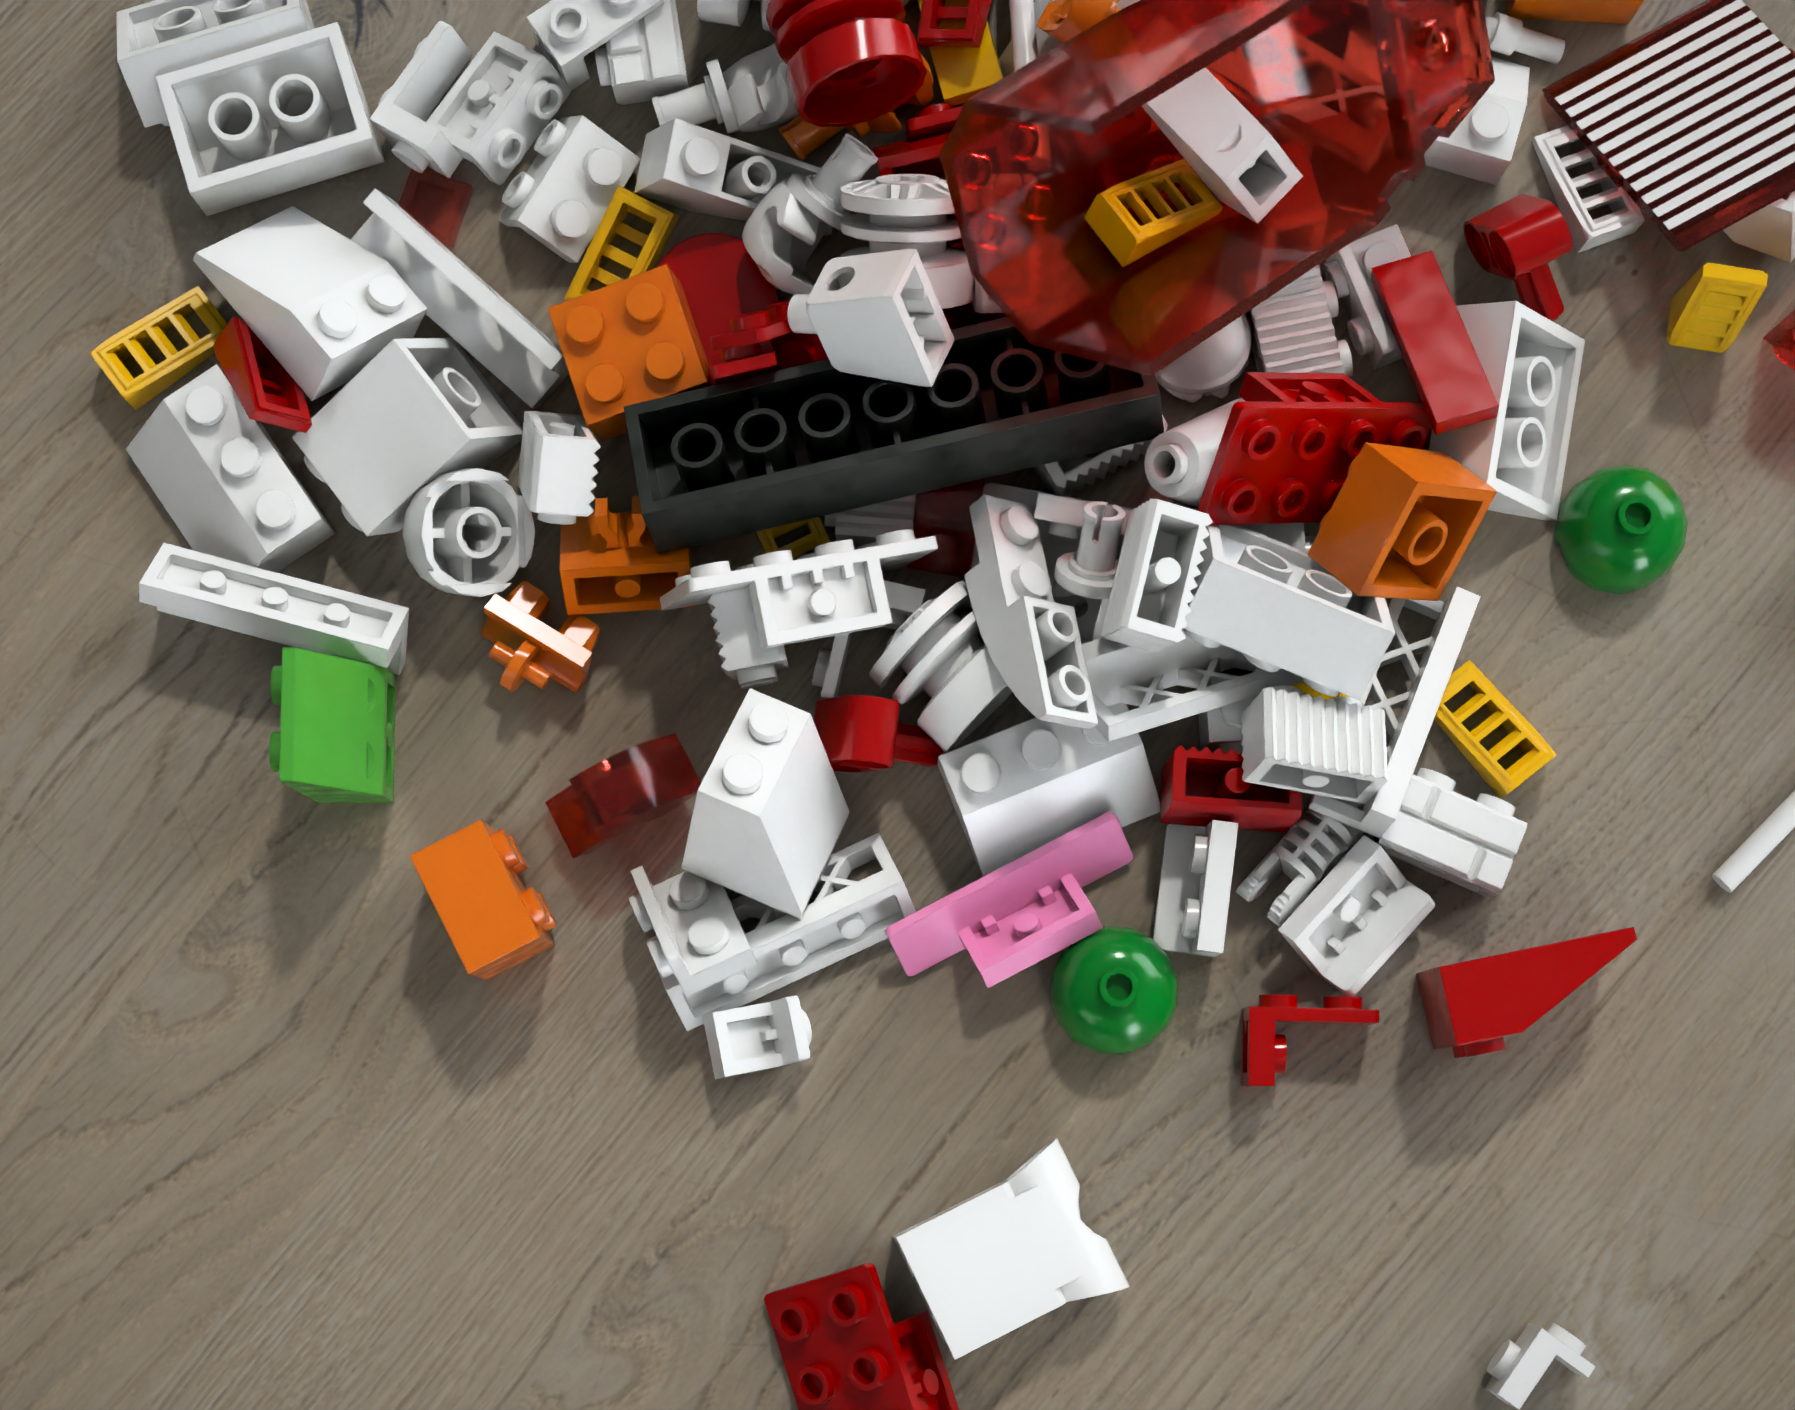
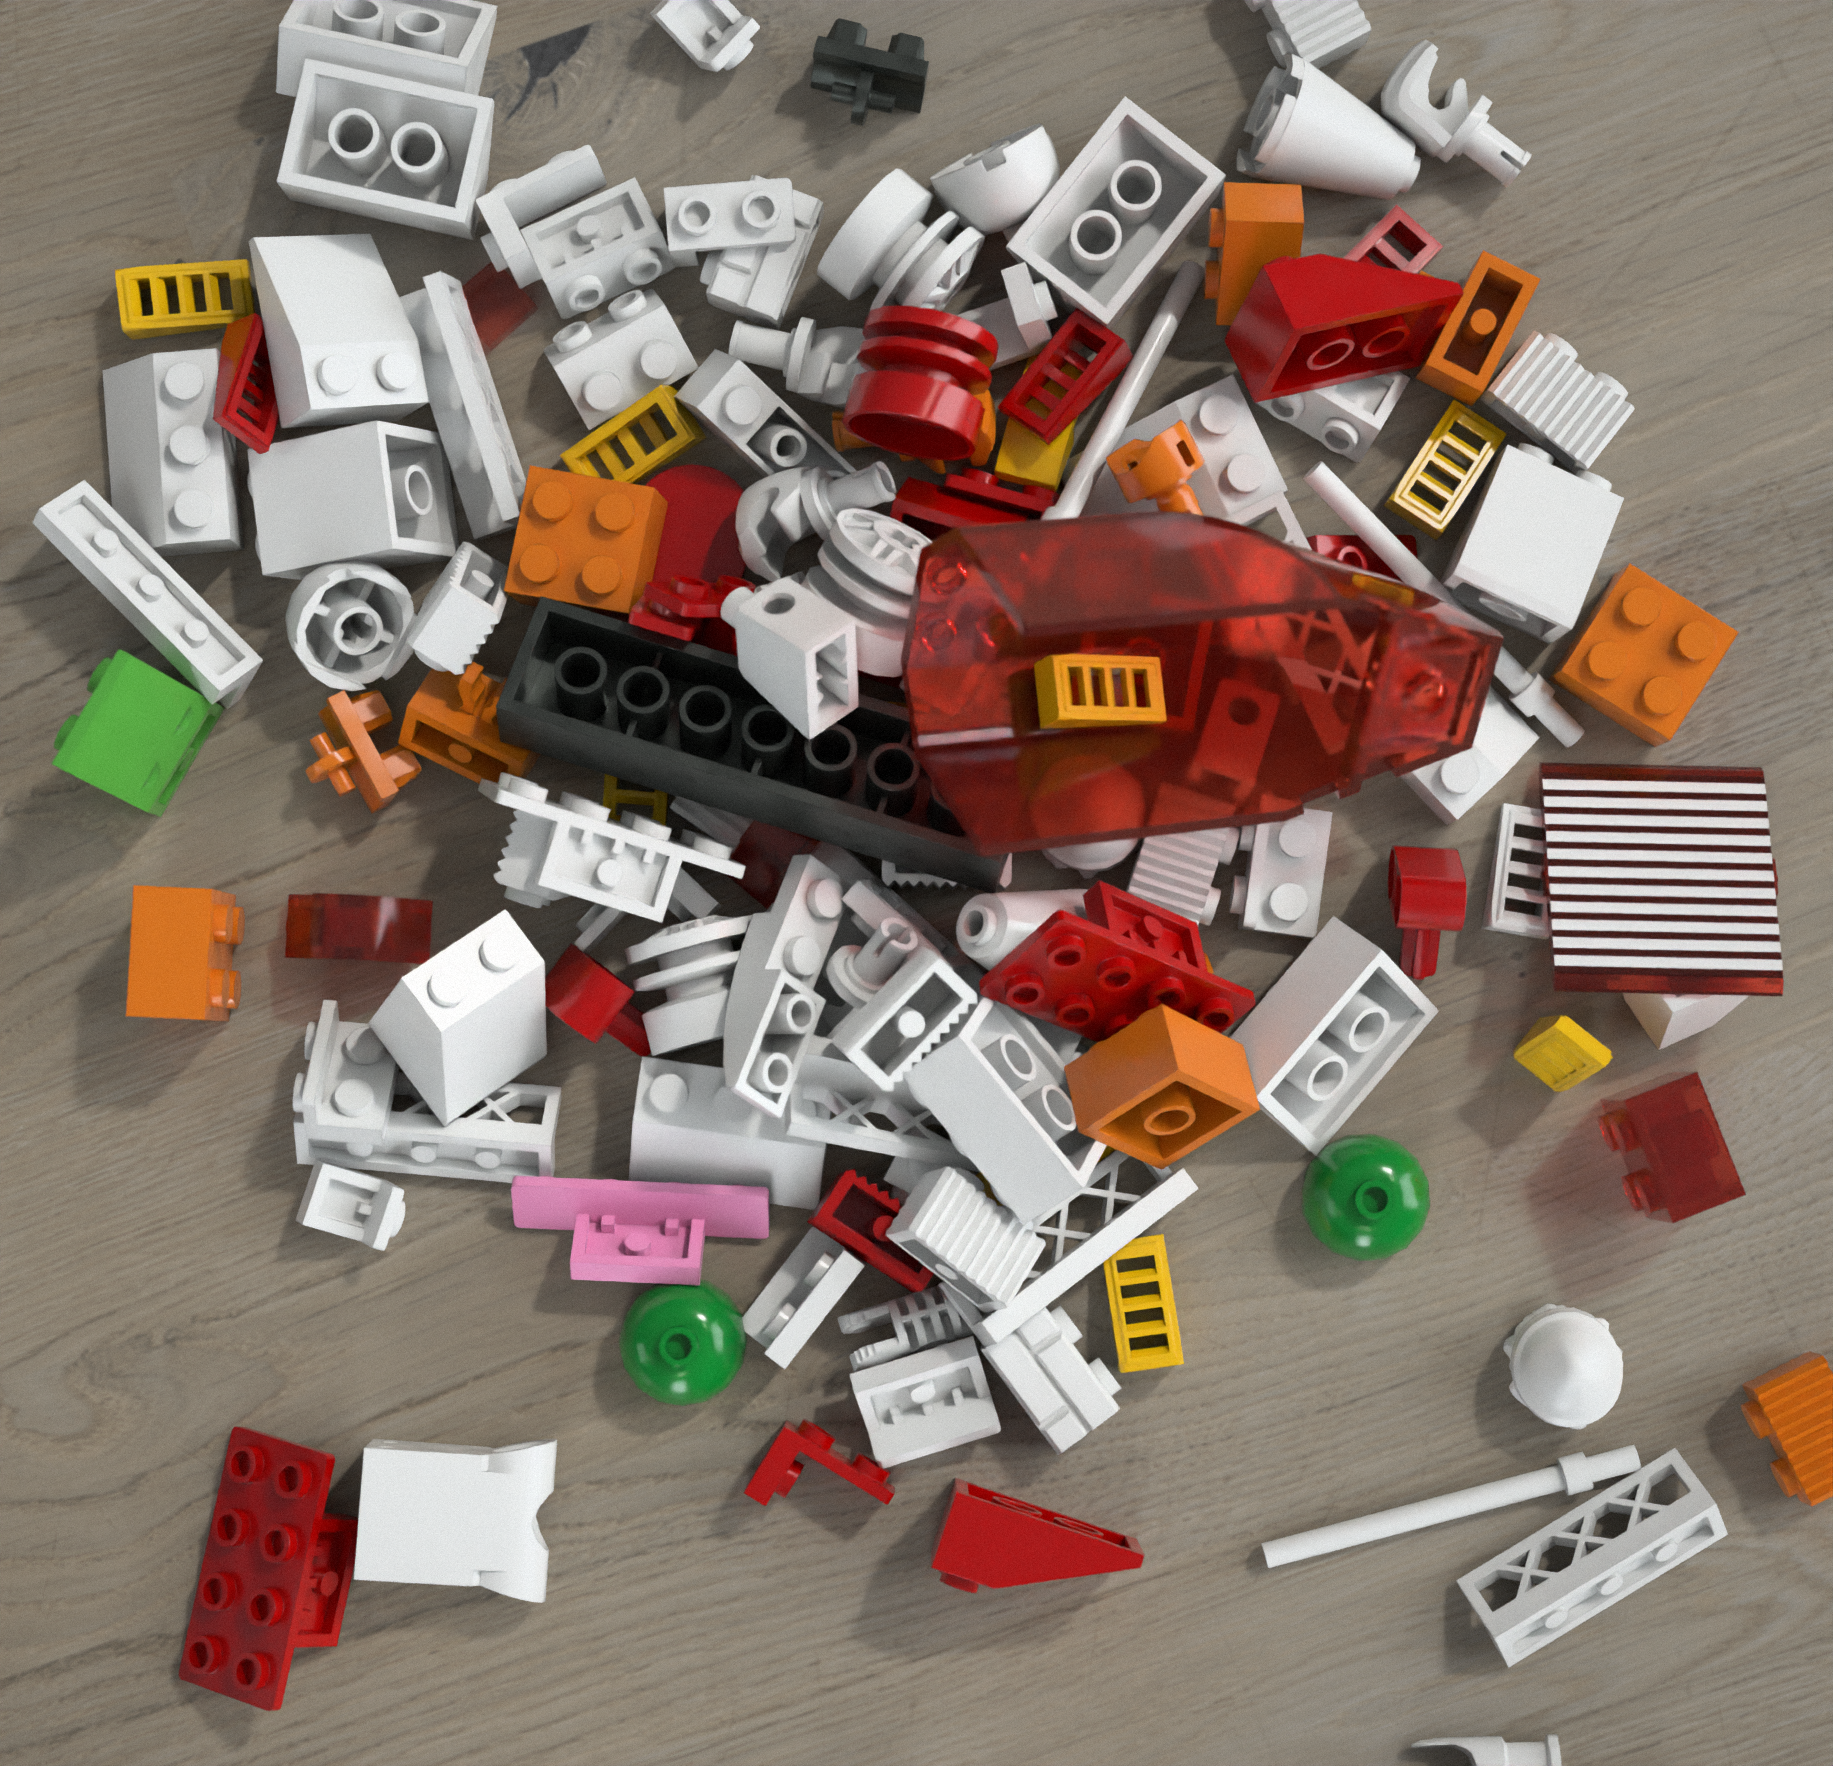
camera: 30 degrees right, 5 degrees up
(1224, 144) = (1192, 686): white slope -> none
(1434, 342) = (1290, 943): red tile -> none

